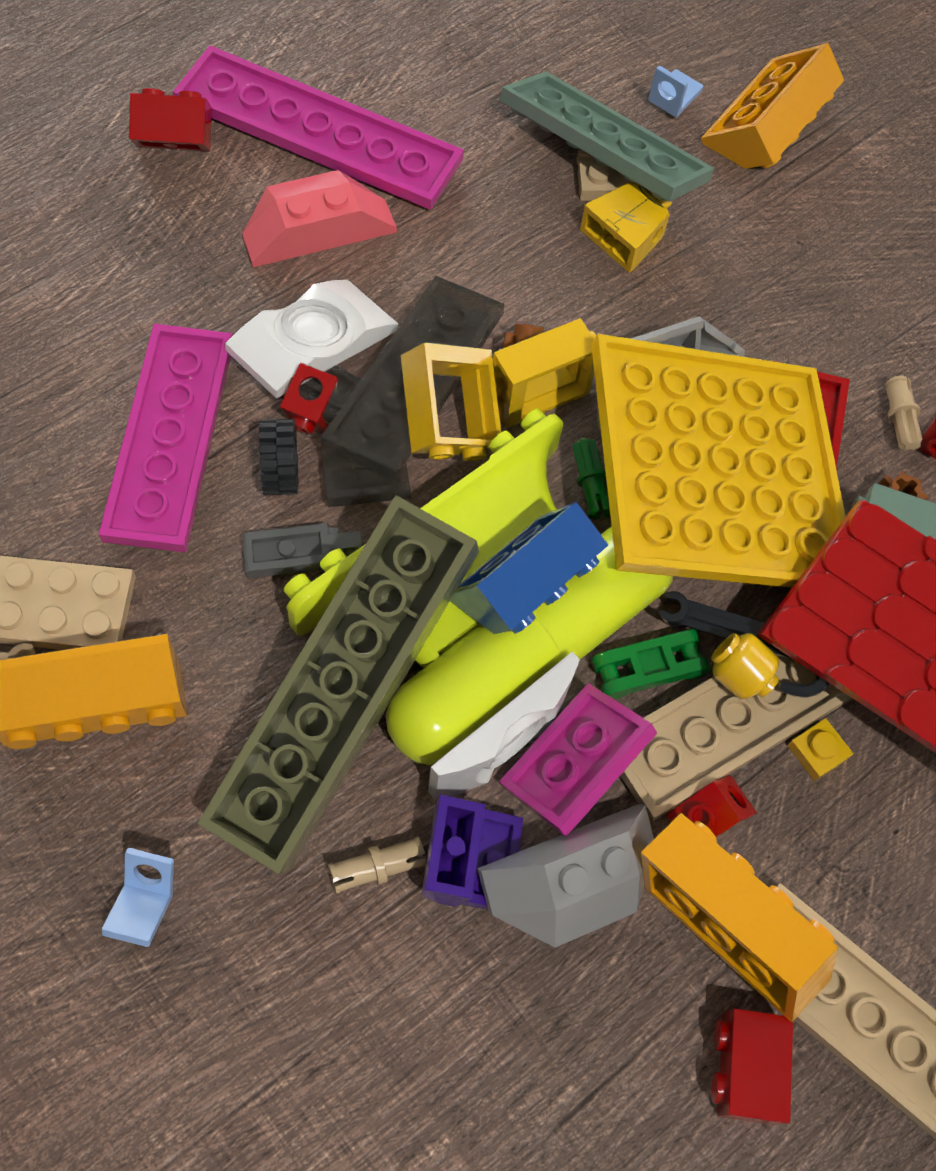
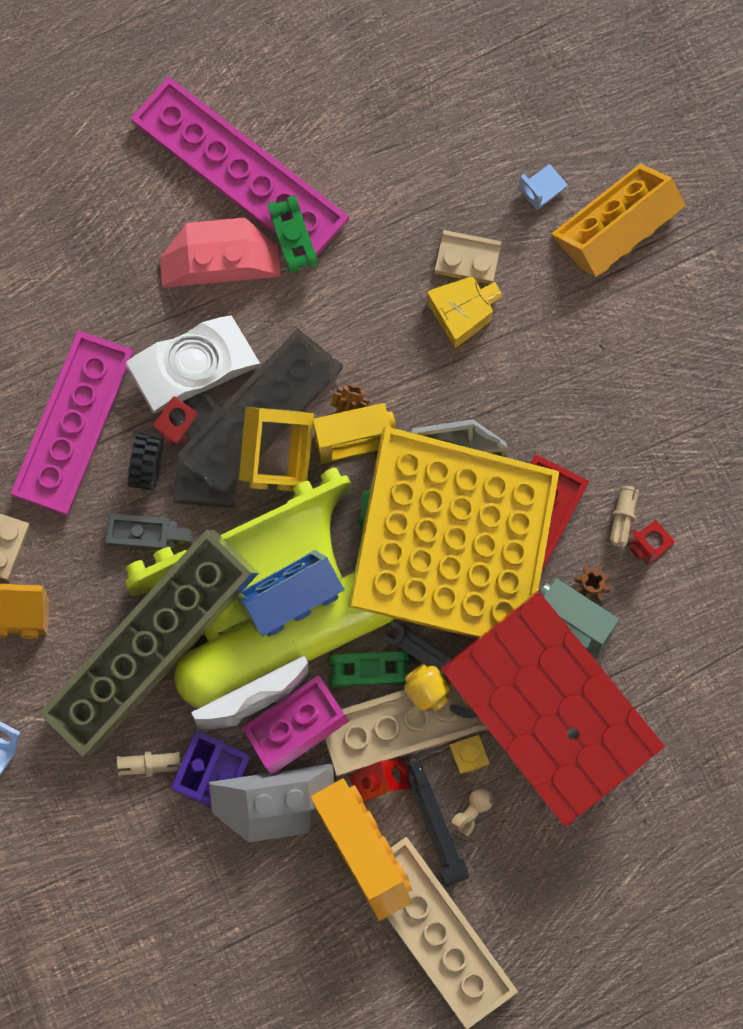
camera: 20 degrees right, 10 degrees up
(170, 120) = (123, 149): red brick -> none
(402, 174) = (292, 234): none -> green plate
(607, 136) = (464, 227): sand green plate -> none
(753, 1067) = (351, 942): red brick -> none
(770, 799) = (451, 869): none -> black piece
(860, 810) = (480, 802): none -> tan arm

